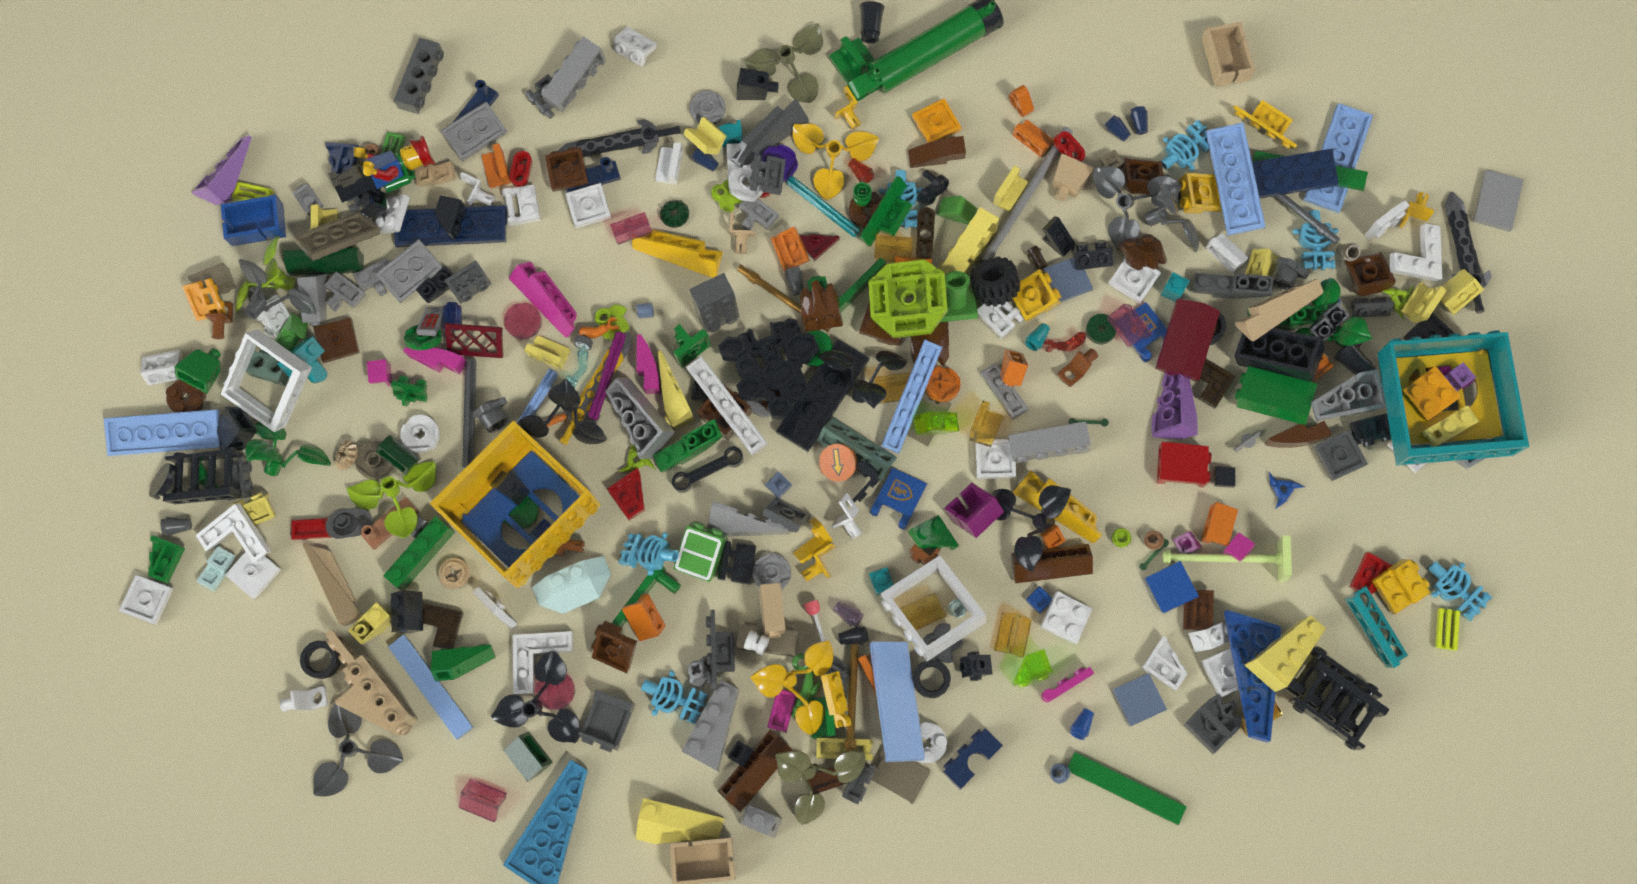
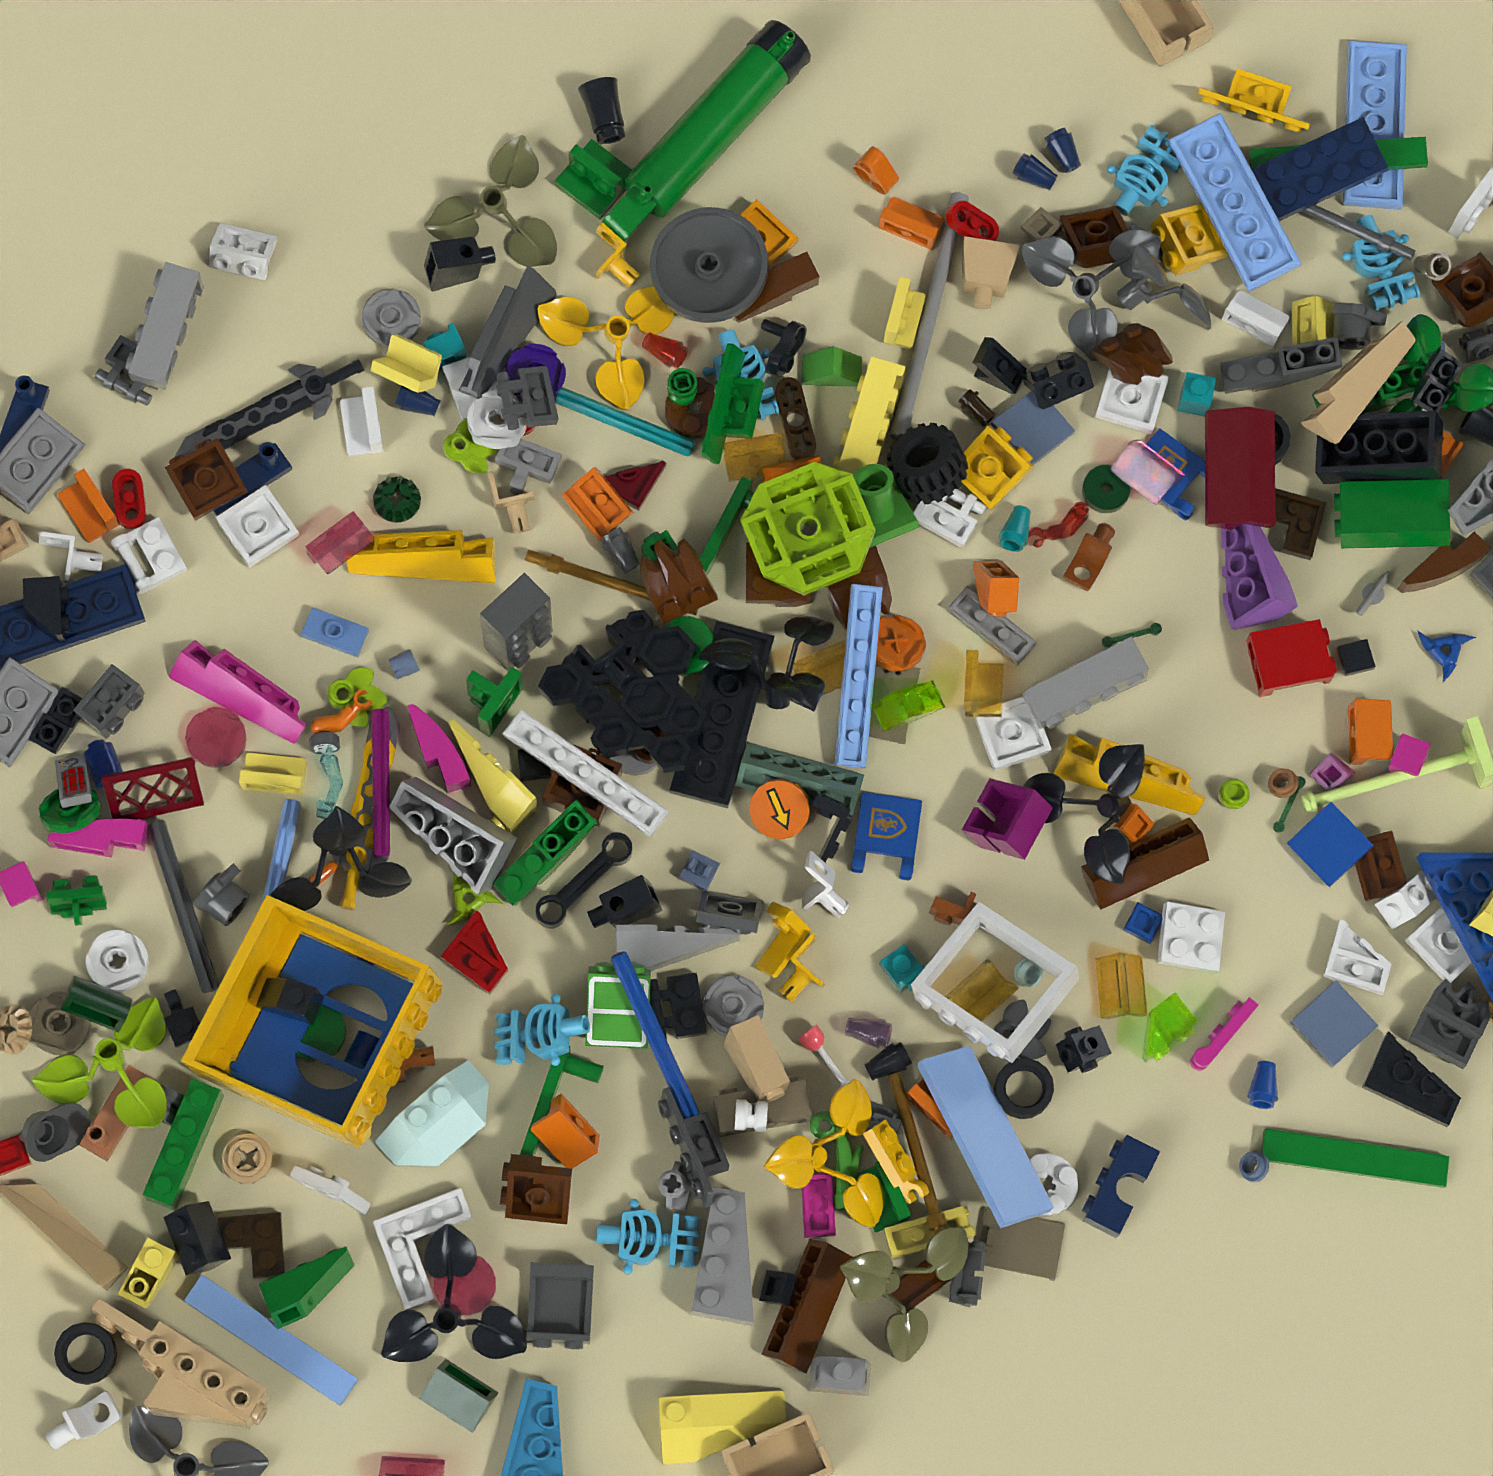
camera: 30 degrees left, 0 degrees up
(444, 478) = (182, 1022): none -> black plate
(612, 280) = (335, 632): none -> medium blue plate
(715, 575) = (654, 1034): none -> blue axle
(727, 491) = (638, 899): none -> black torso
(902, 127) = (709, 265): none -> dark grey dish
(933, 534) = (957, 874): green wing -> none
(1174, 751) = (1408, 1083): none -> black wing

